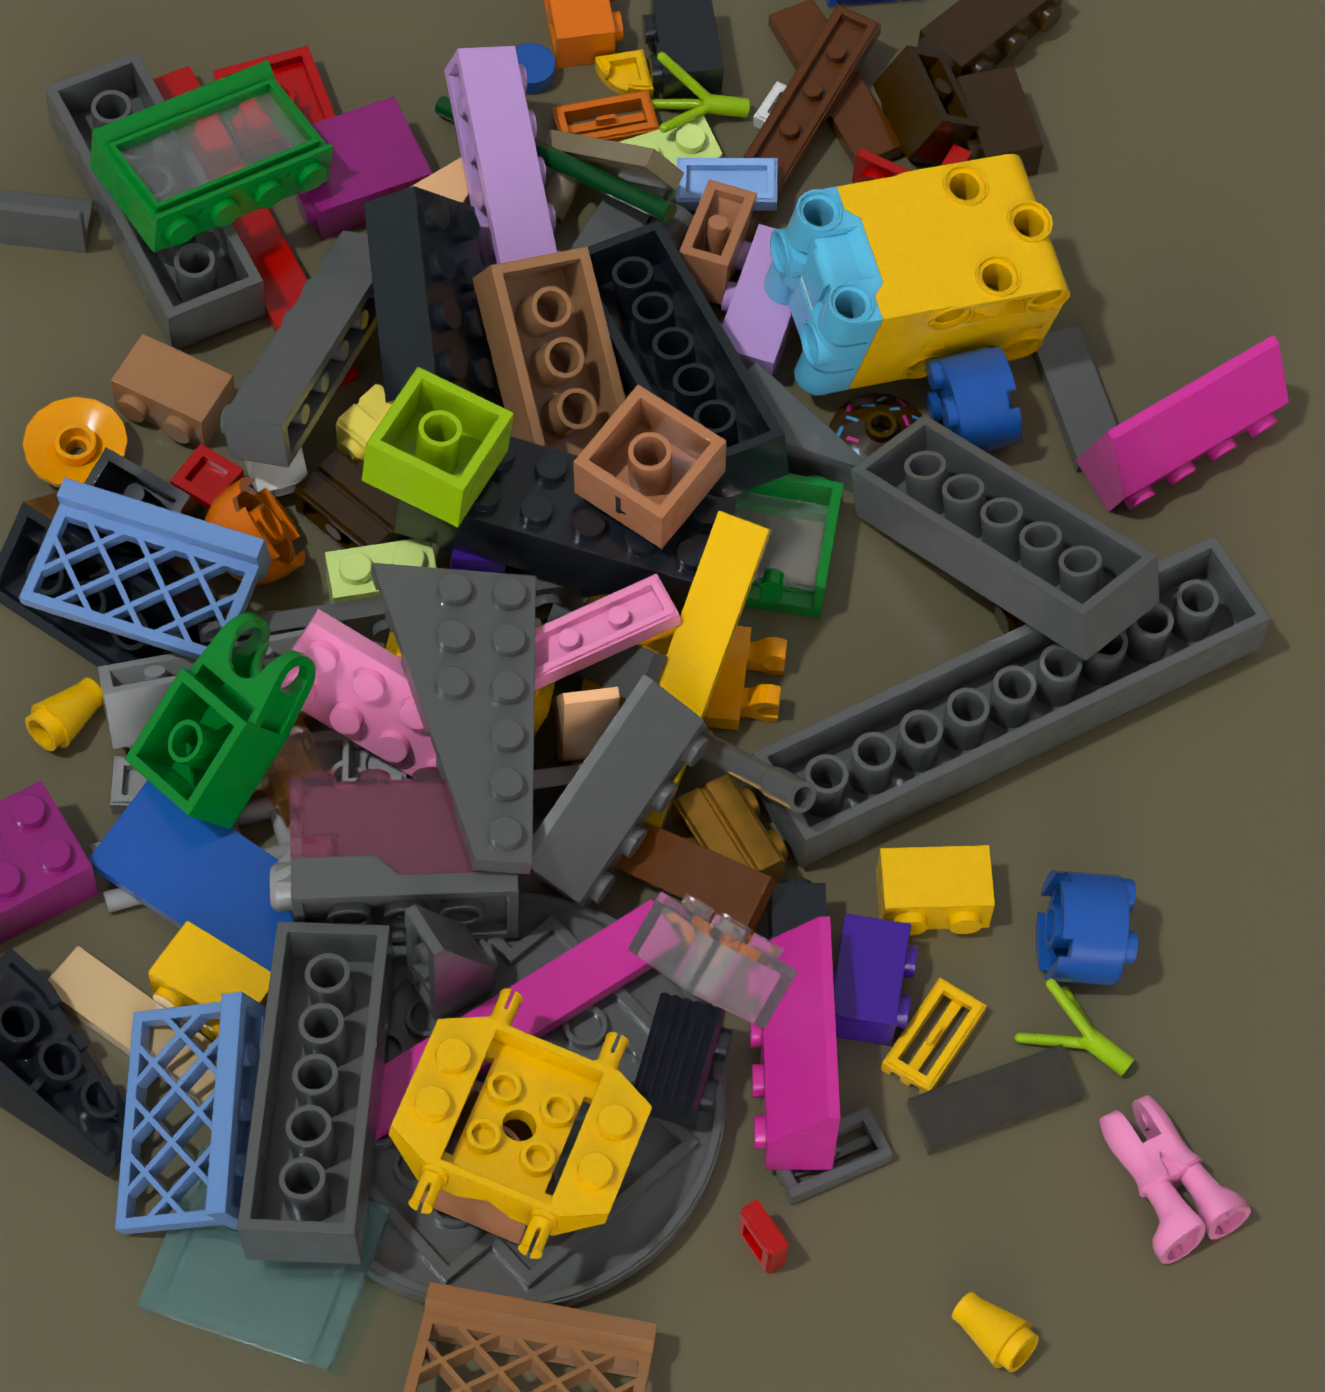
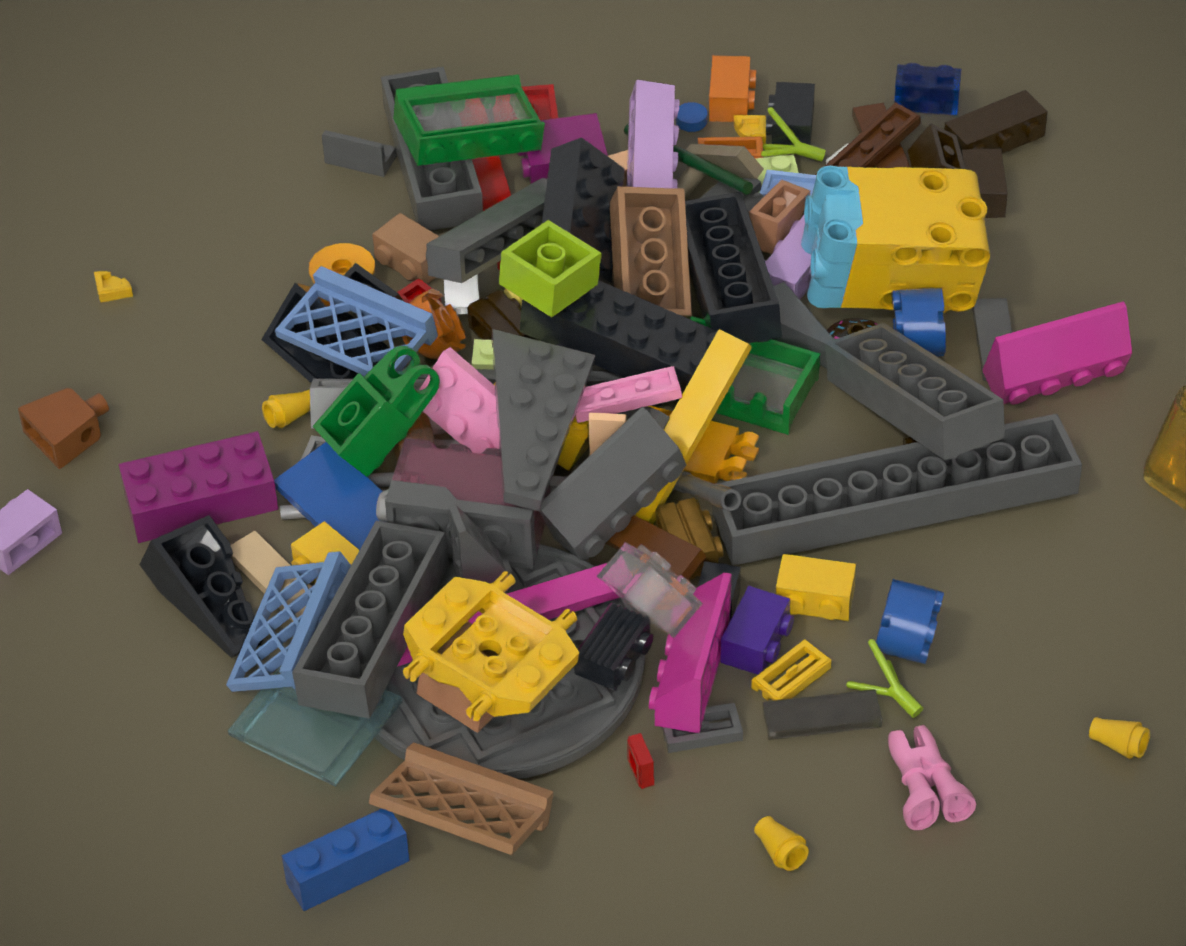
camera: 20 degrees right, 15 degrees down
(649, 466) = (682, 300): nougat brick -> none

